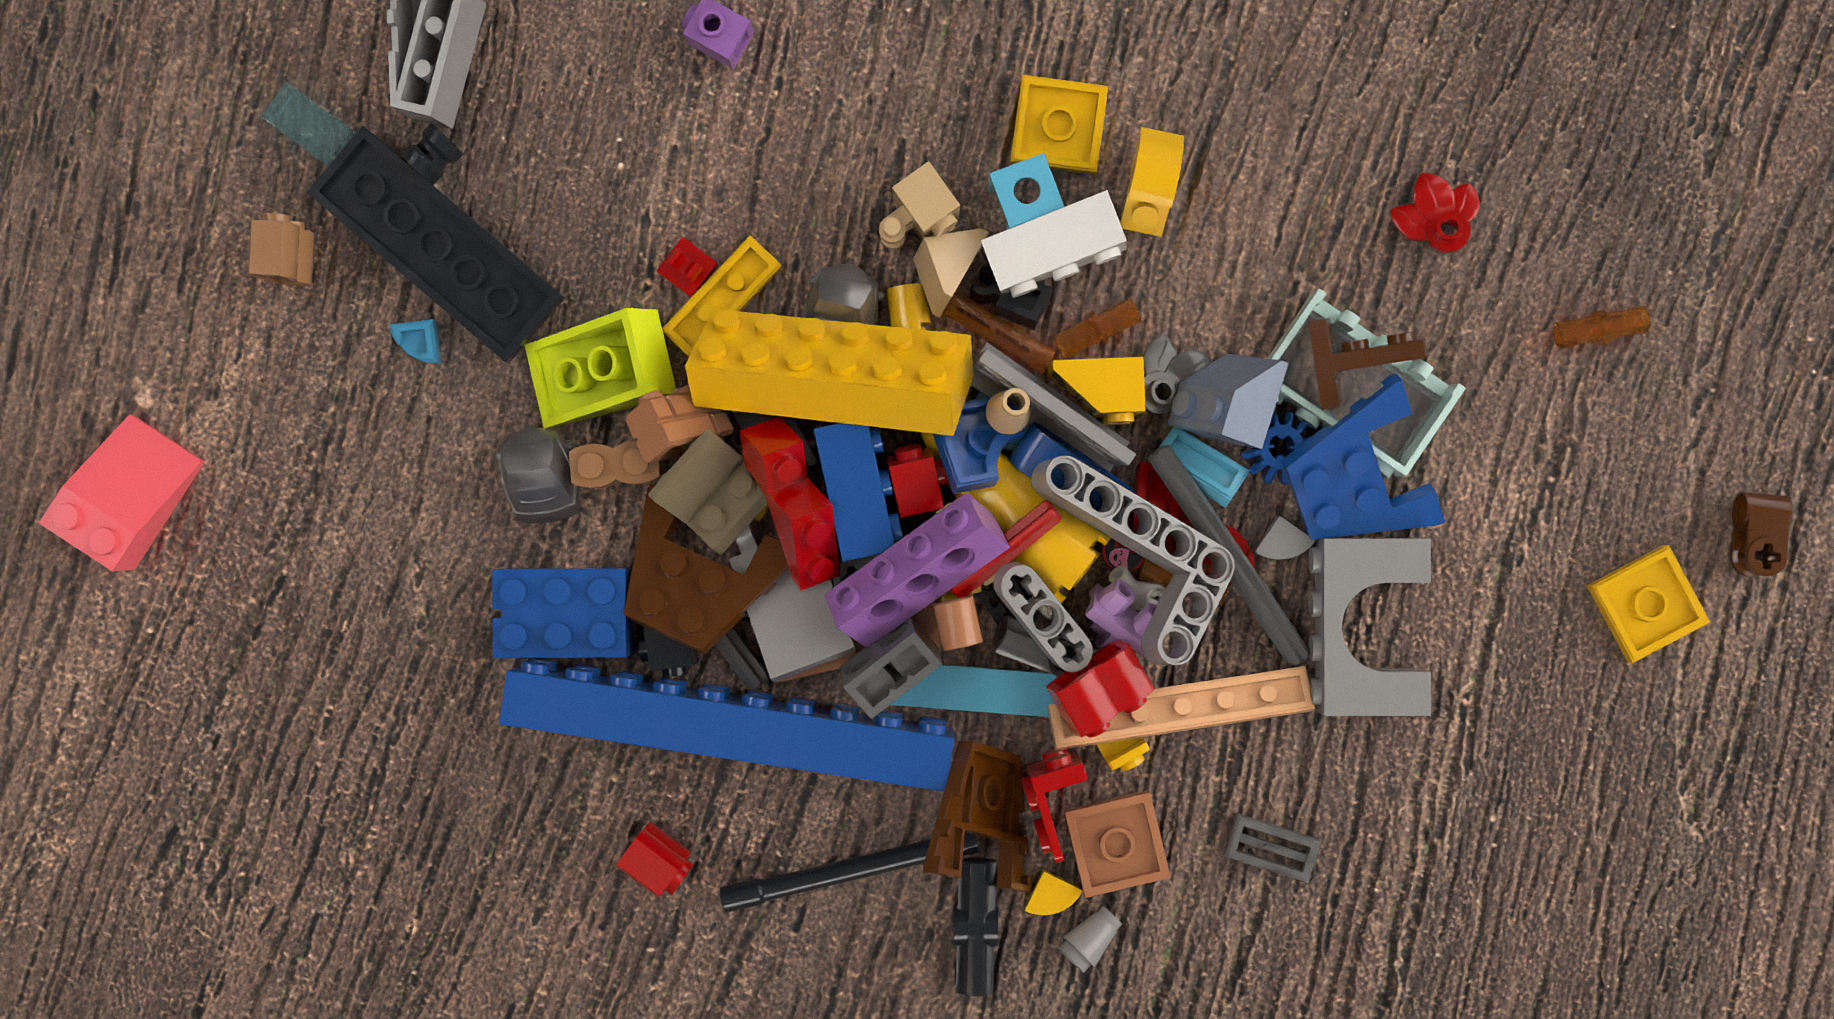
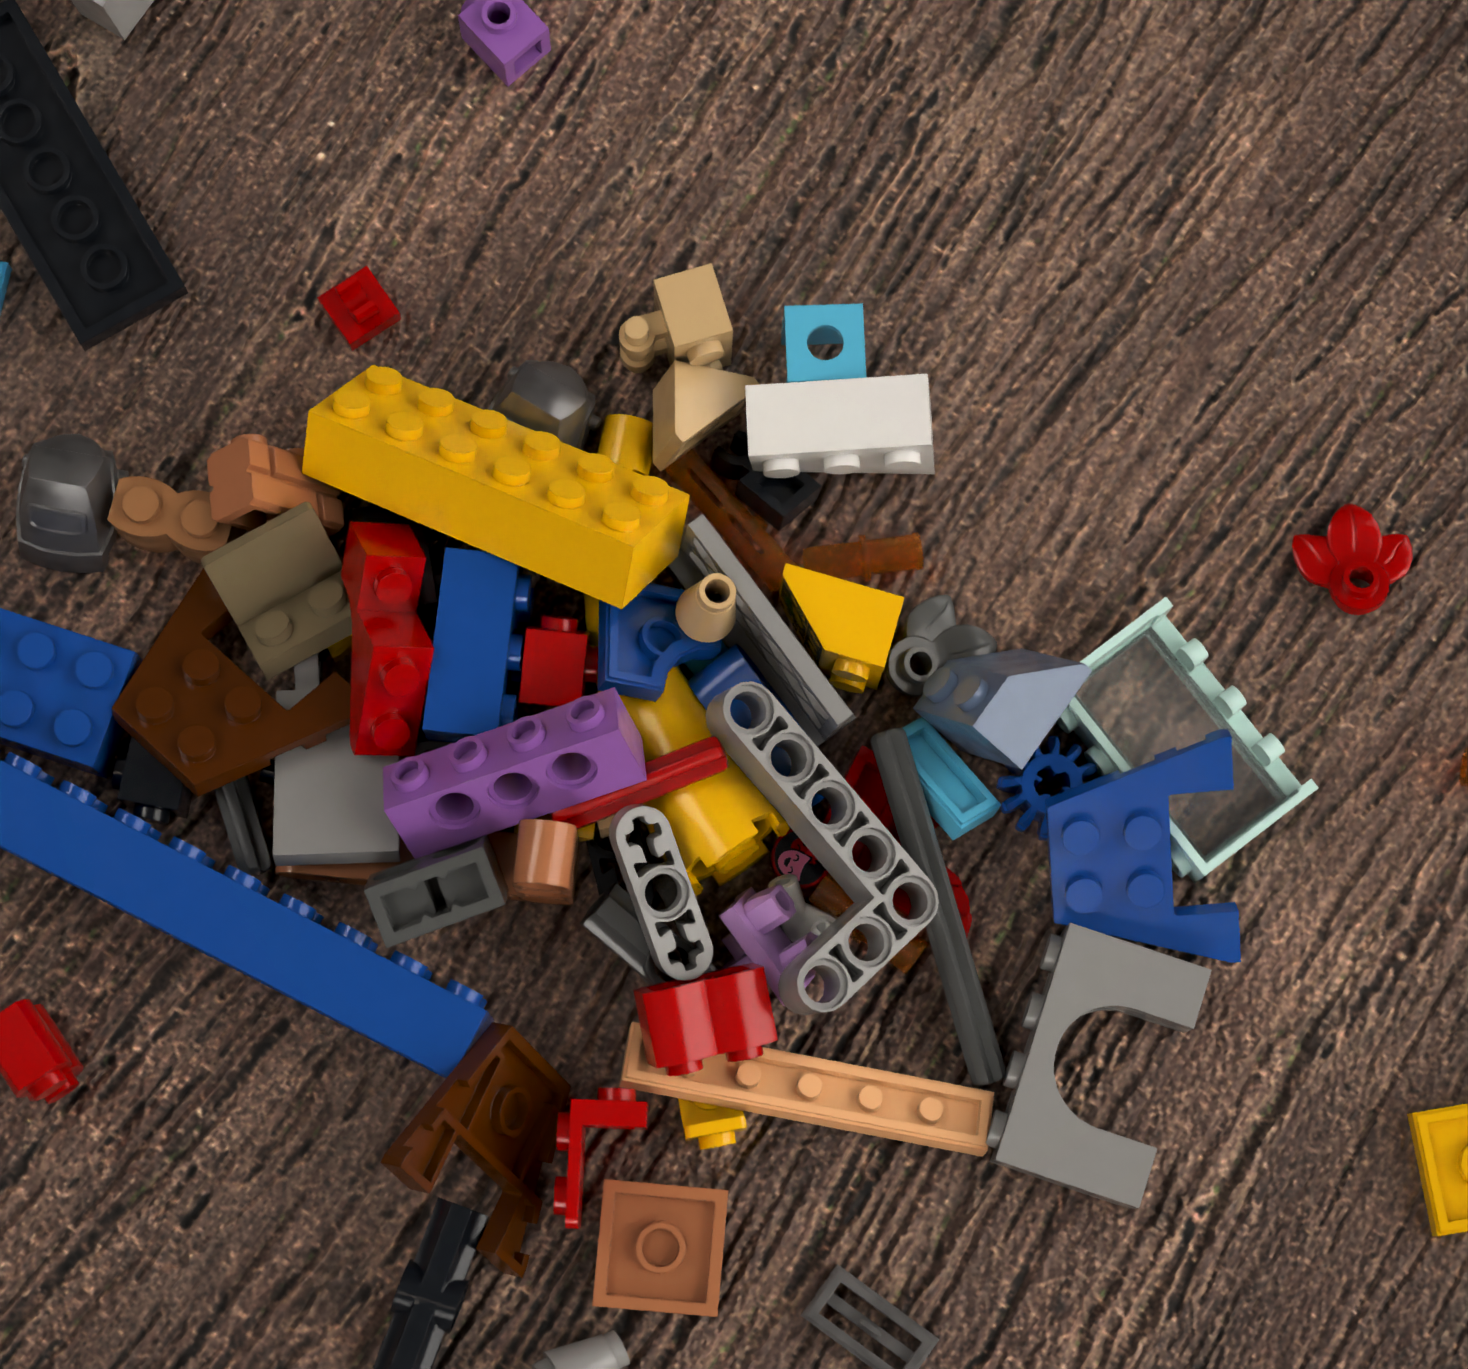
camera: 20 degrees right, 10 degrees down
(439, 146) = (101, 57): black wheel -> none
(599, 366) = (199, 389): neon yellow slope -> none
(728, 288) = (412, 346): yellow tile -> none
(758, 891) = (156, 1151): black piece -> none
(982, 690) = (534, 974): medium azure tile -> none
(1051, 894) = (548, 1290): yellow tile -> none
(1060, 121) = (904, 285): yellow tile -> none
(1152, 181) = (992, 395): yellow brick -> none
(1283, 541) = (1017, 916): light grey tile -> none
(1354, 355) = (1184, 695): reddish brown bracket -> none

